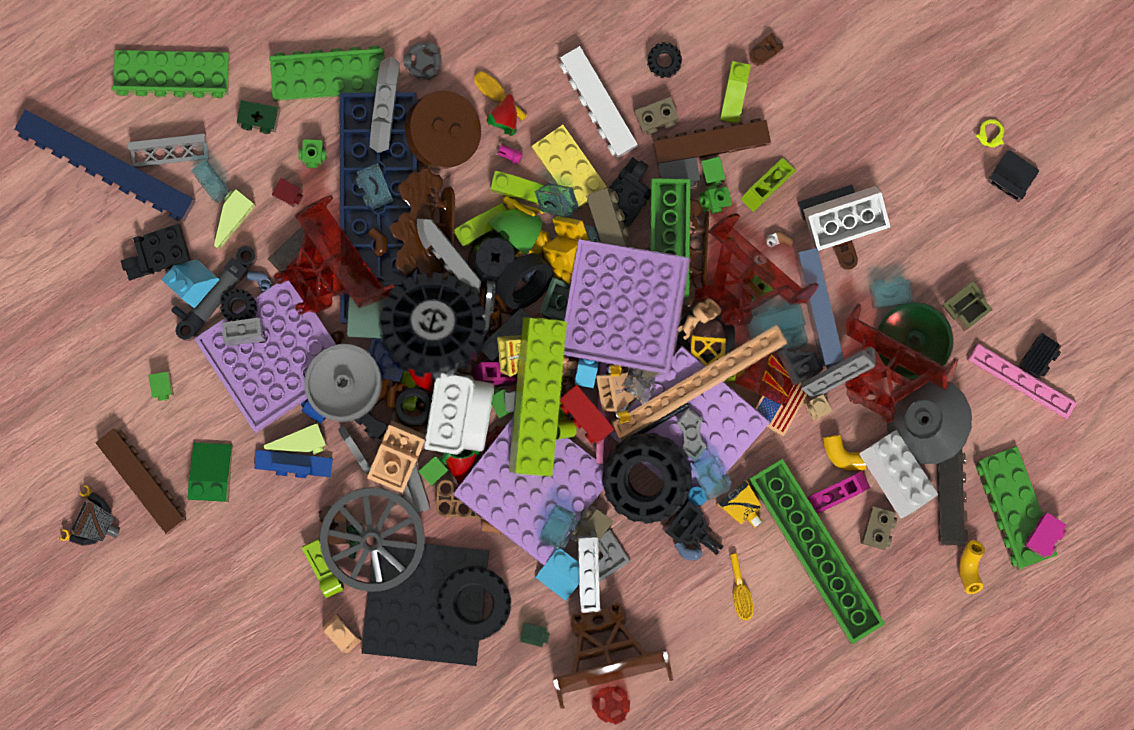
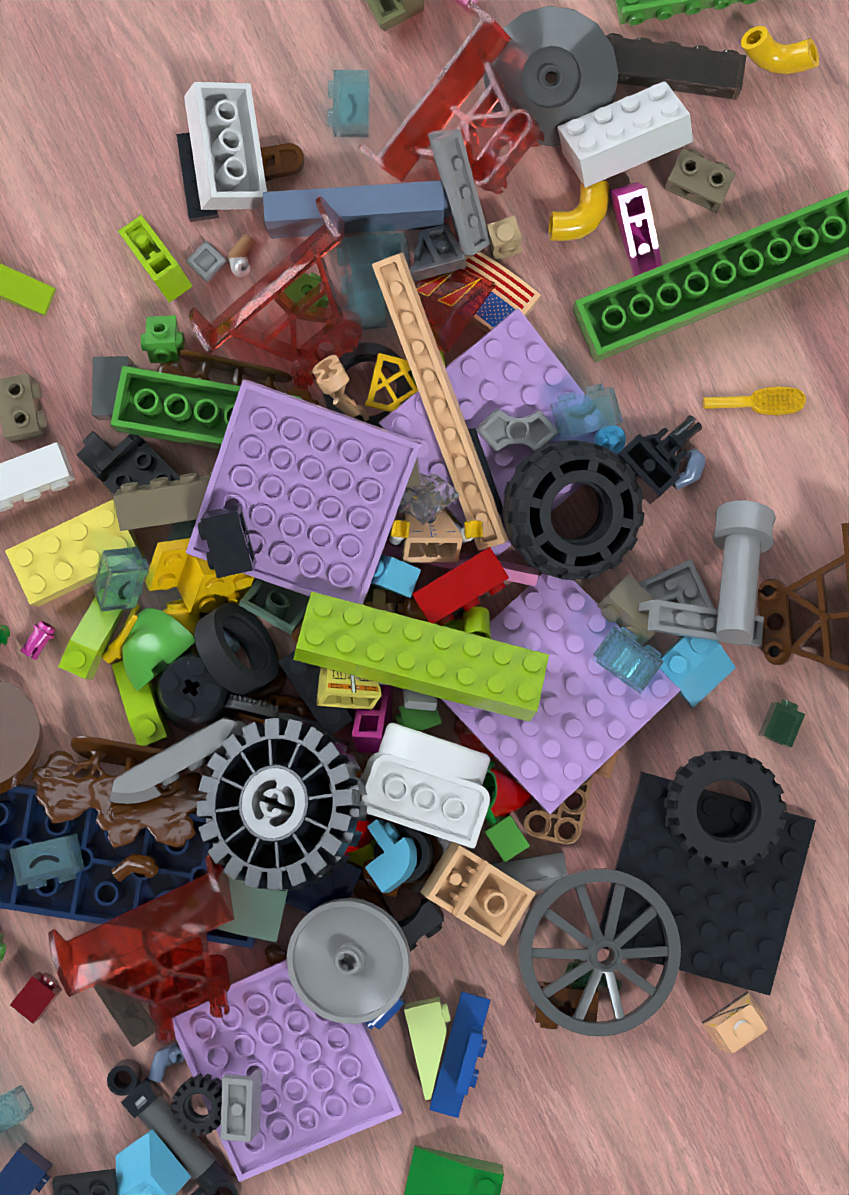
camera: 75 degrees left, 0 degrees up
(233, 214) = (55, 1088): yellowish green slope -> none
(328, 581) = (655, 1031): lime plate -> none
(355, 449) = (454, 955): light grey tile -> none
(409, 402) = (398, 858): none -> medium azure brick
(589, 265) = (227, 541): none -> black brick
(651, 589) = (743, 533): none -> light grey piece
(712, 142) = (75, 329): reddish brown brick -> none
(713, 171) = (119, 337): bright green brick -> none
(742, 505) = (633, 376): torso -> none
(772, 218) = (206, 261): none -> light grey tile
(920, 329) = (410, 62): dark green dish -> none

